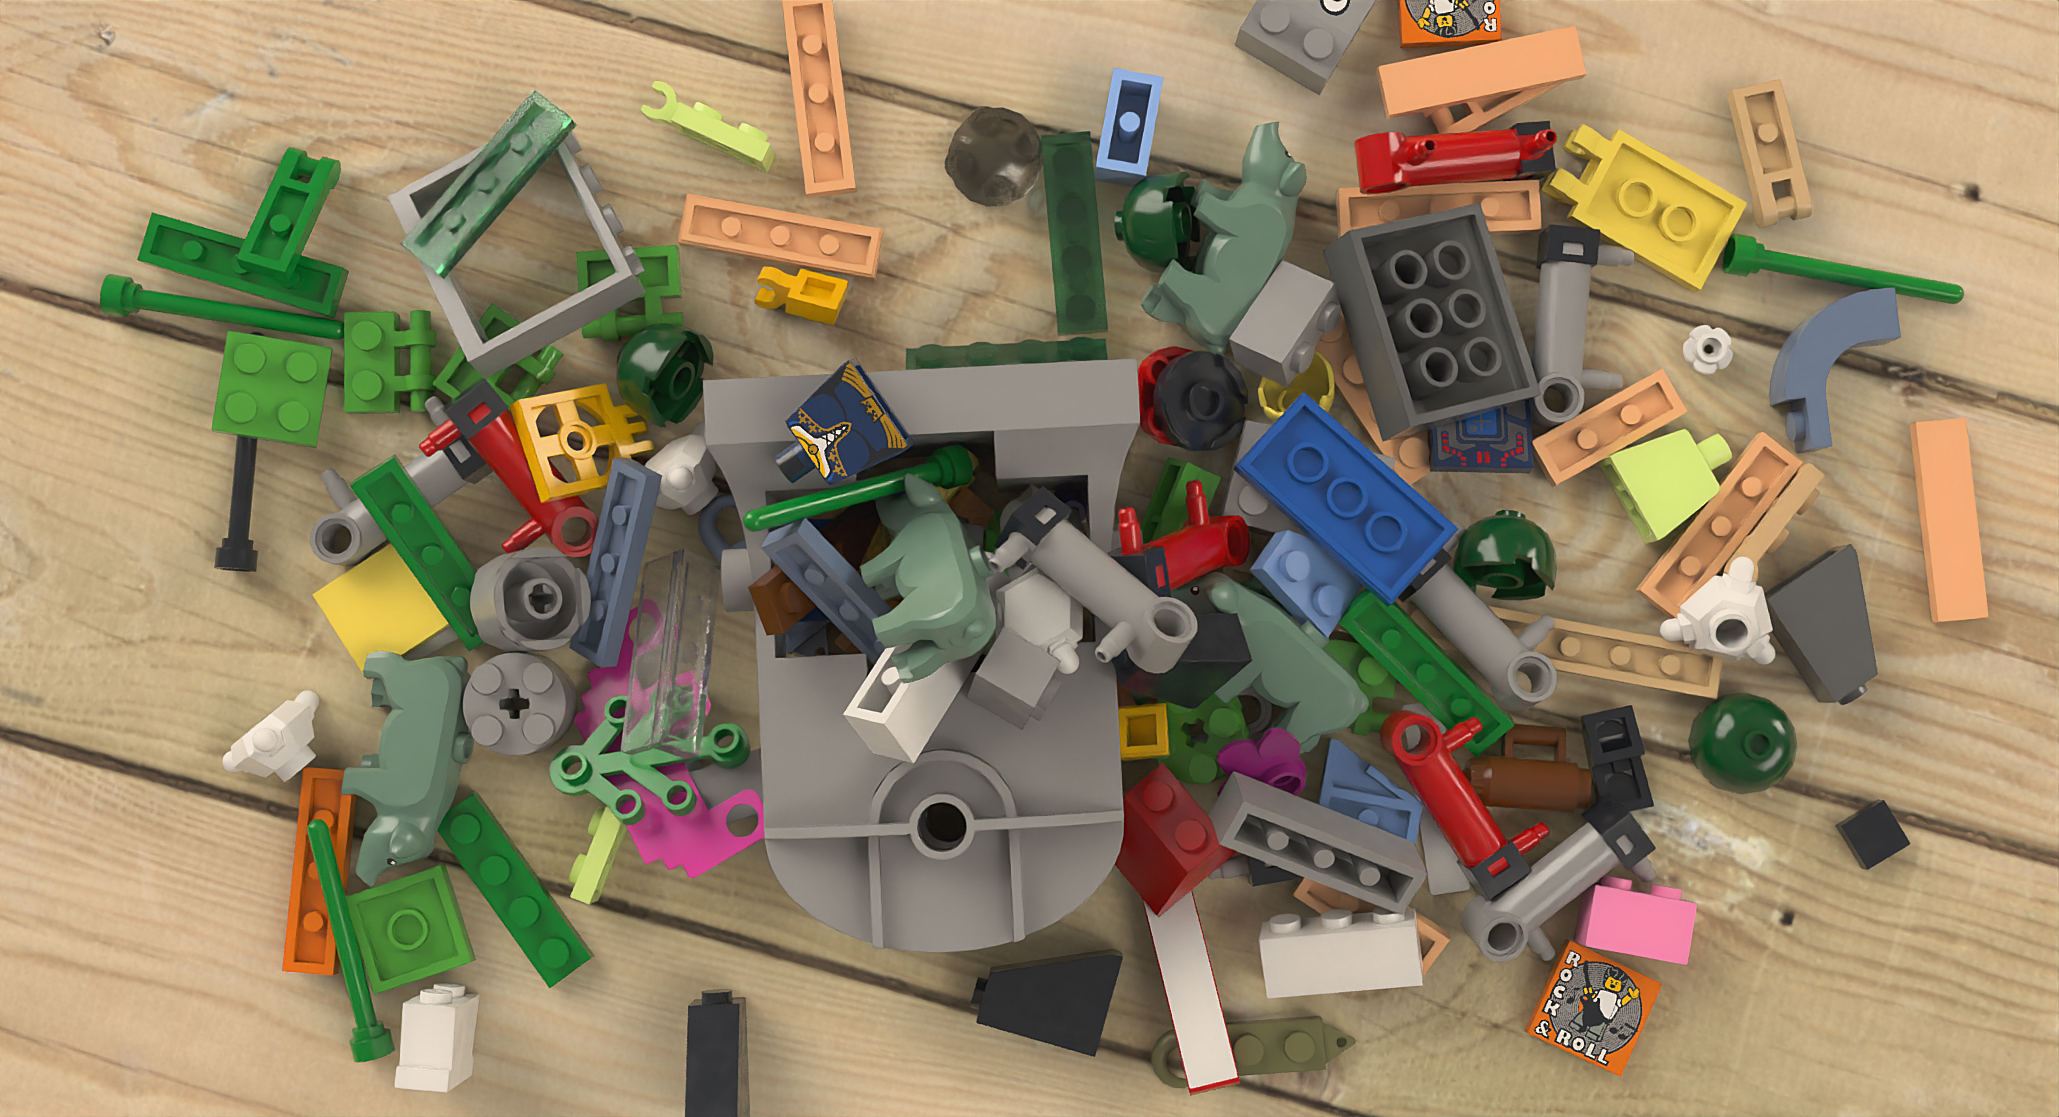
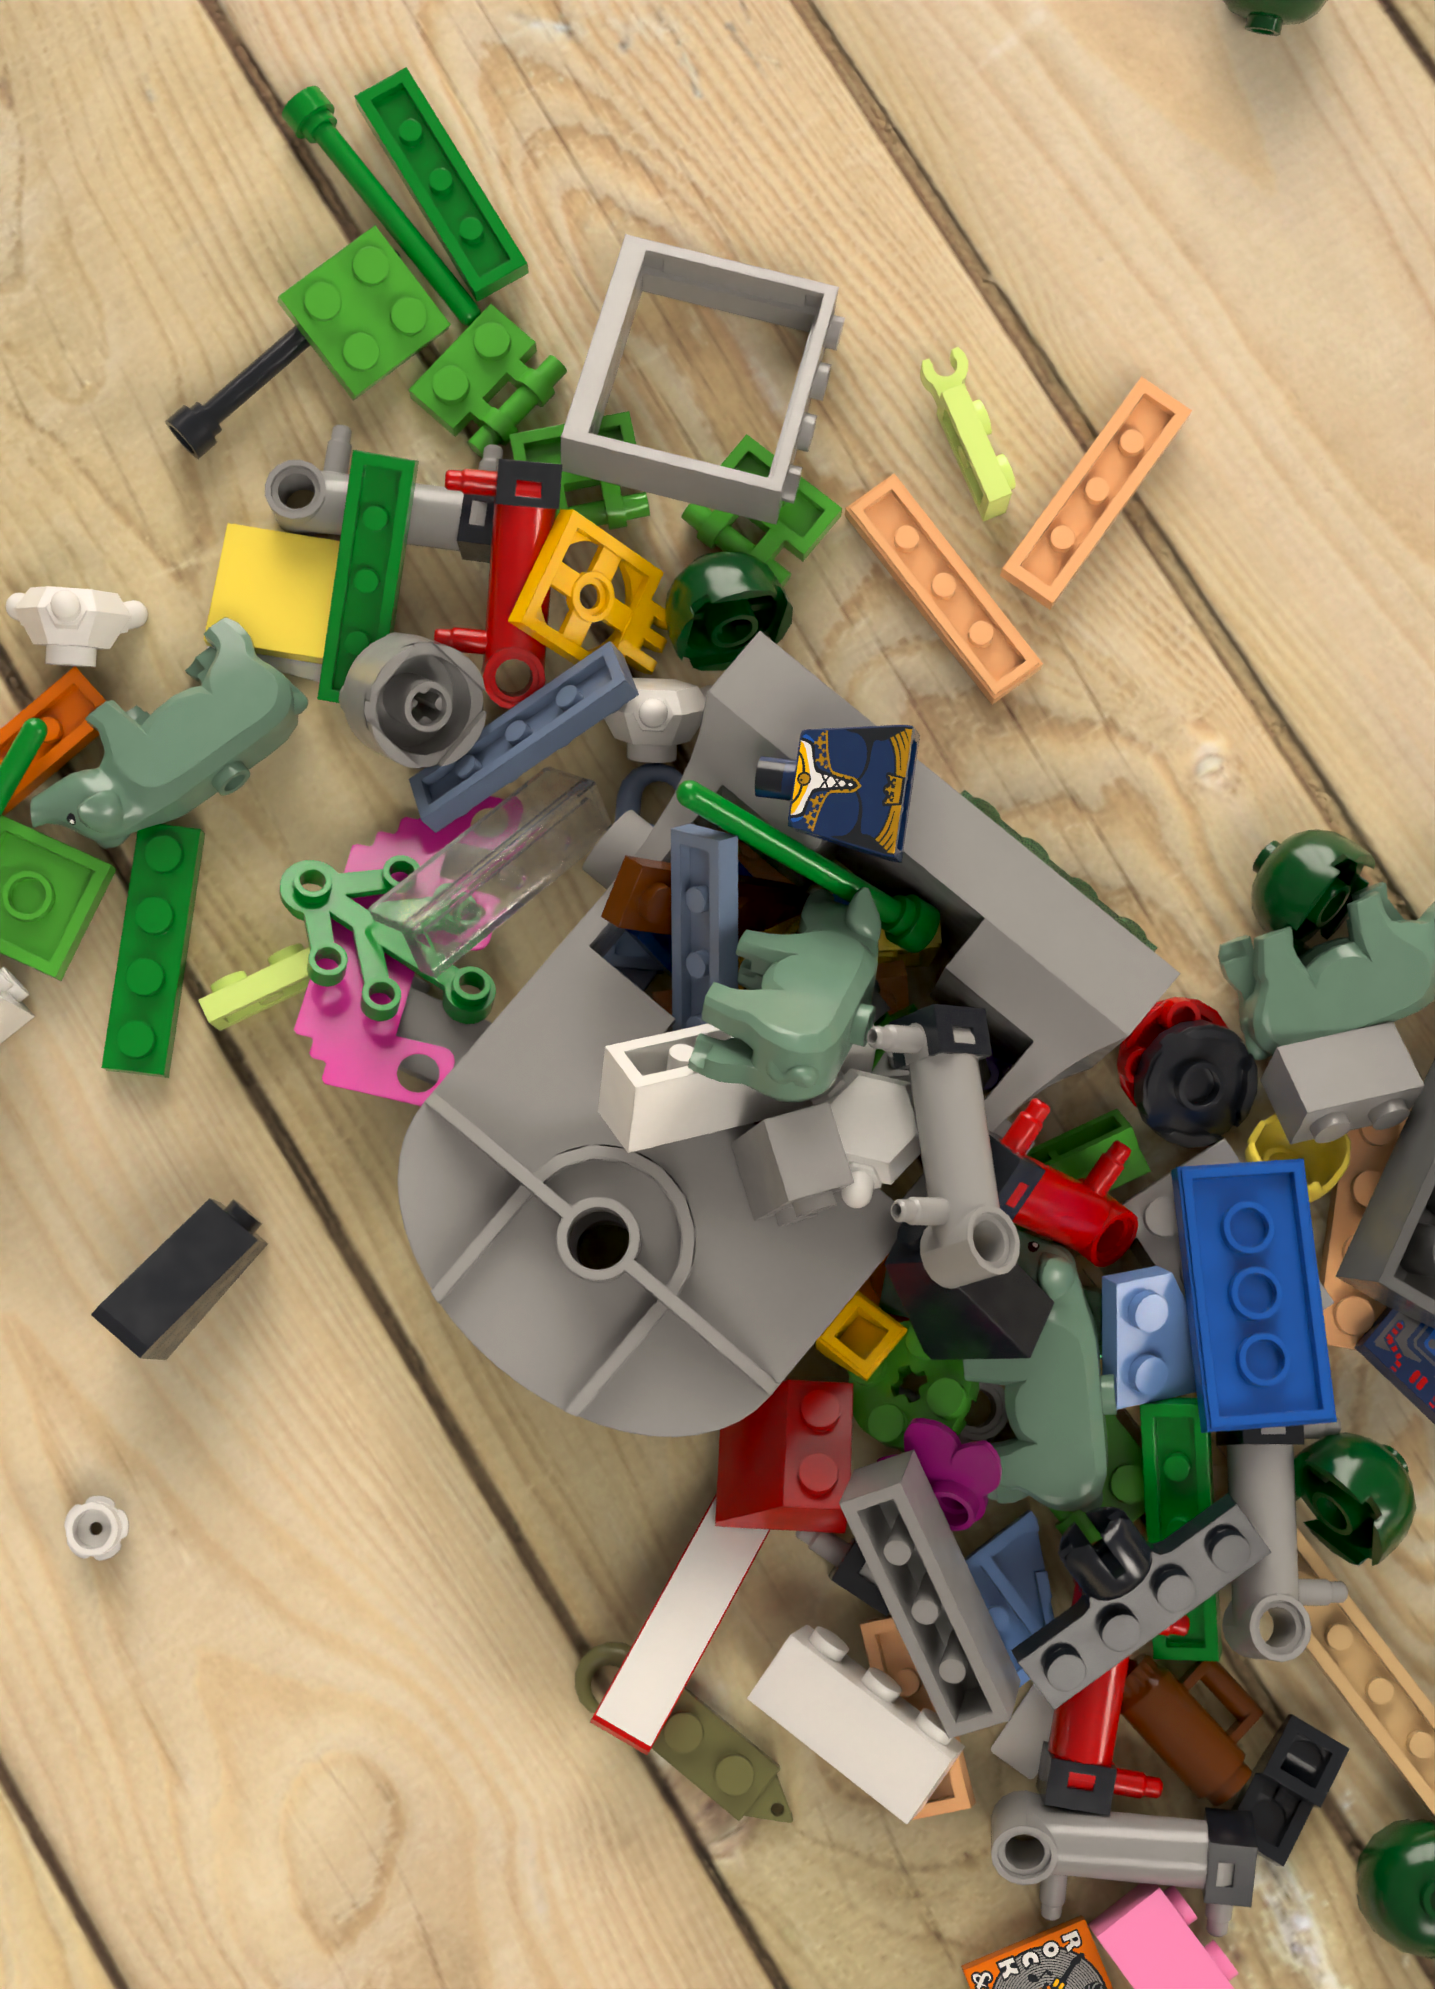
camera: 40 degrees right, 5 degrees down
(288, 214) = (523, 173): green plate -> none
(489, 184) = (726, 300): clear green plate -> none
(505, 729) = (318, 751): light grey brick -> none
(807, 295) = (919, 660): yellow plate -> none
(995, 156) = (1207, 691): clear smoke dish -> none
(1051, 998) = (544, 1508): black slope -> none
(1074, 234) = (1216, 826): clear green plate -> none
(1128, 127) = (1357, 772): light blue brick -> none
(1430, 734) = (1133, 1591): none -> plate

